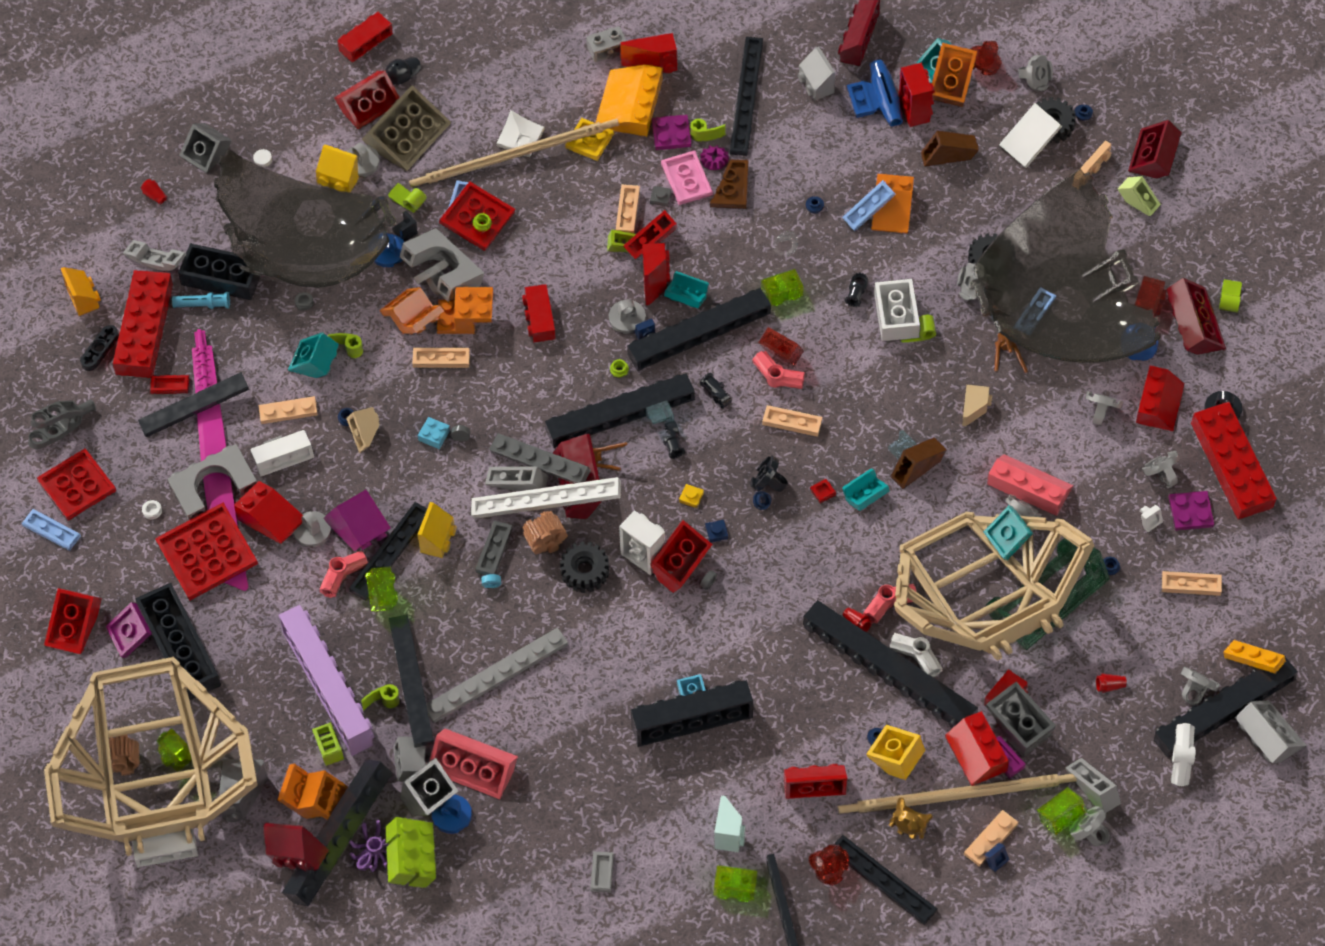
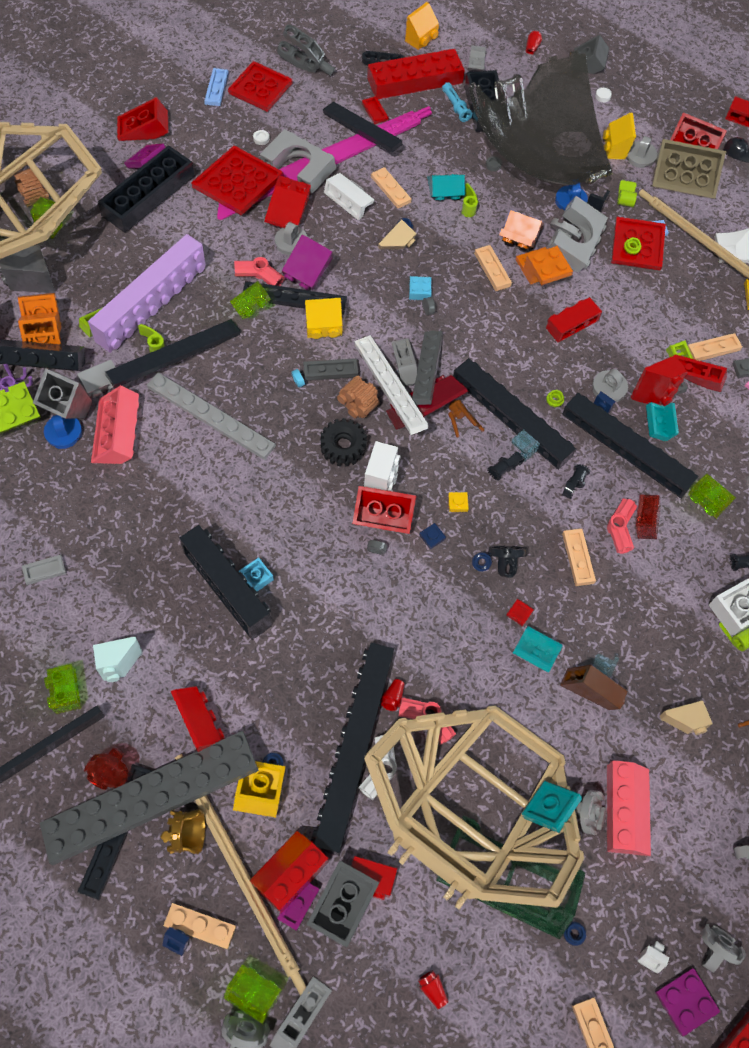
camera: 60 degrees right, 5 degrees up
(868, 839) = (147, 797): none -> dark grey plate

